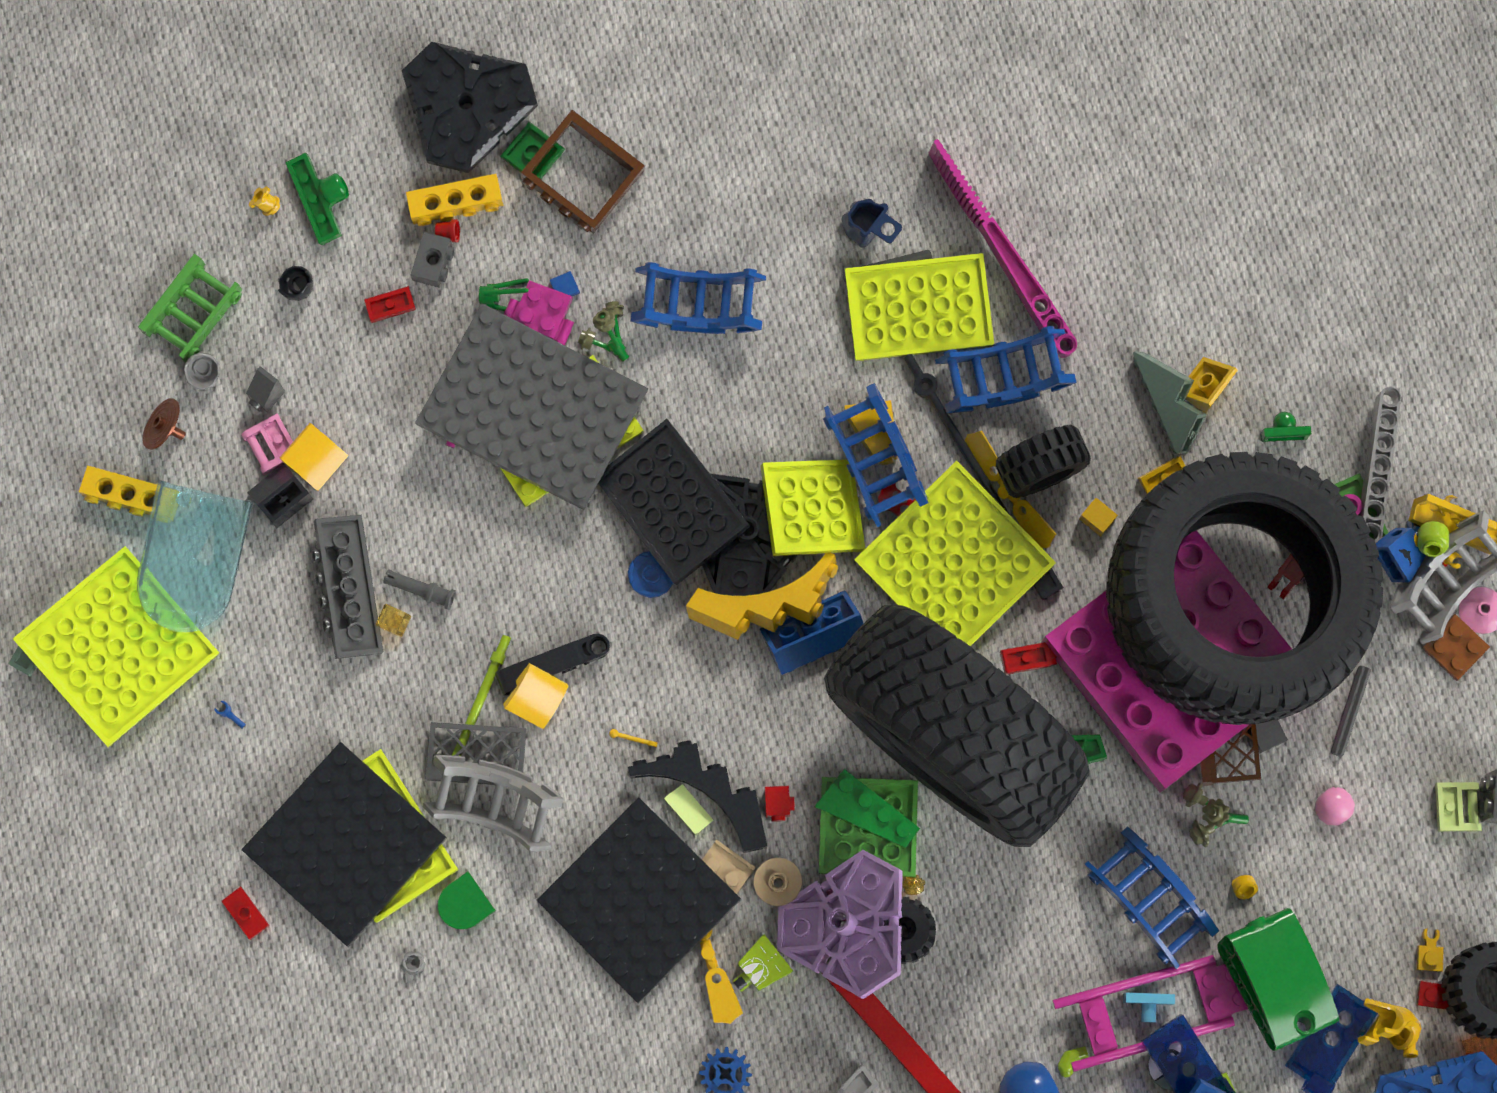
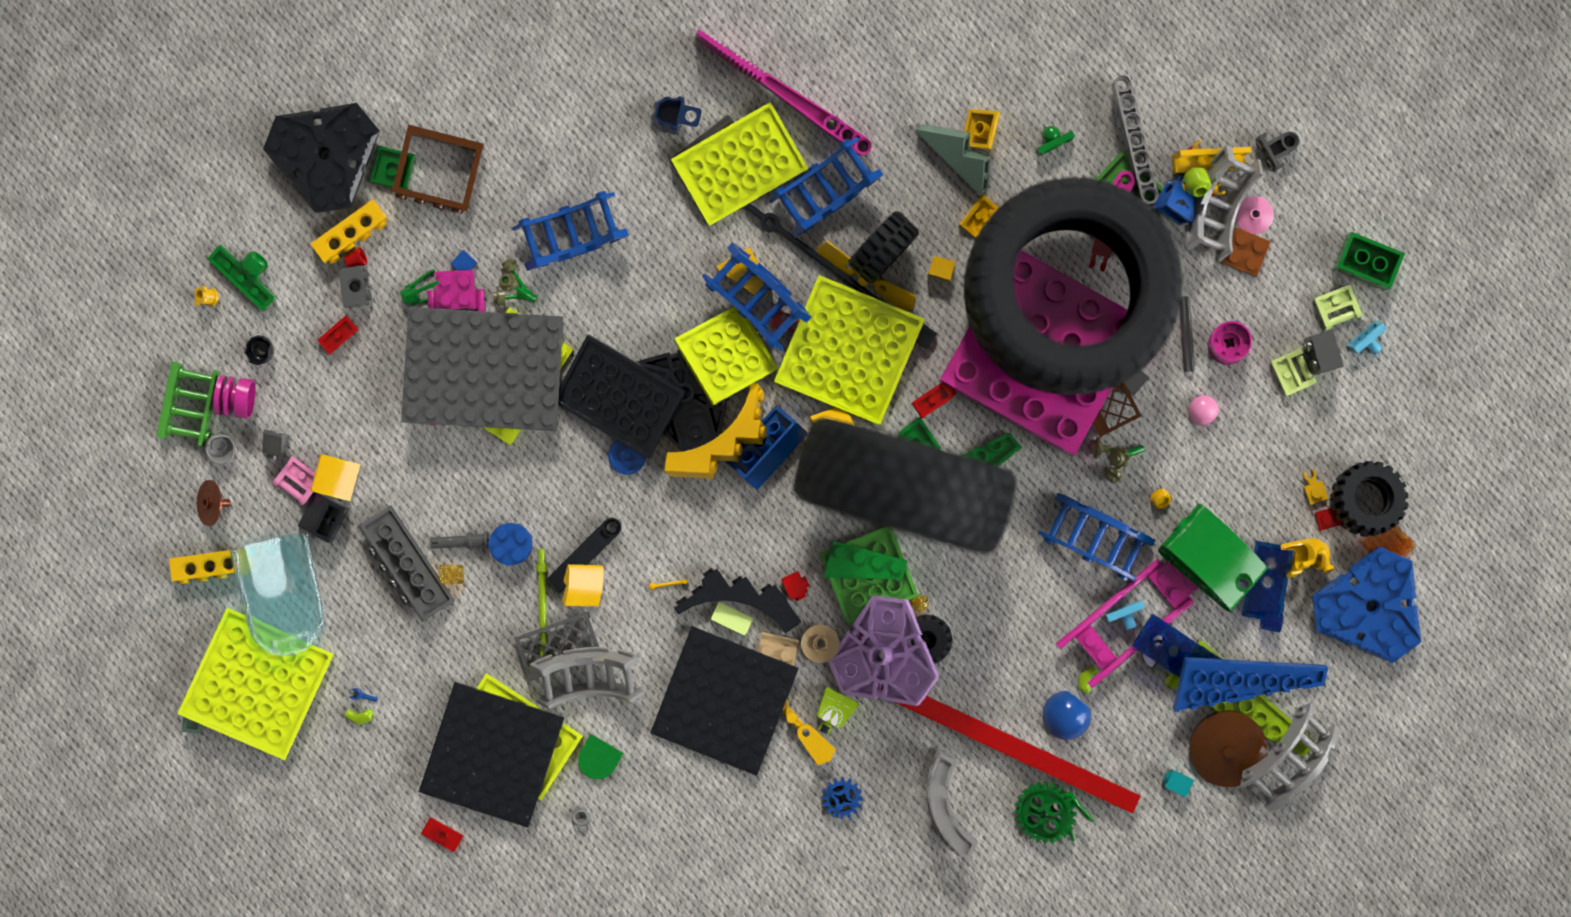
camera: 25 degrees left, 10 degrees up
(215, 739) = (361, 718): none -> lime arm
(244, 320) = (229, 396): none -> dark pink wheel
(475, 615) = (510, 544): none -> blue wheel
(1404, 728) = (1237, 334): none -> dark pink wheel

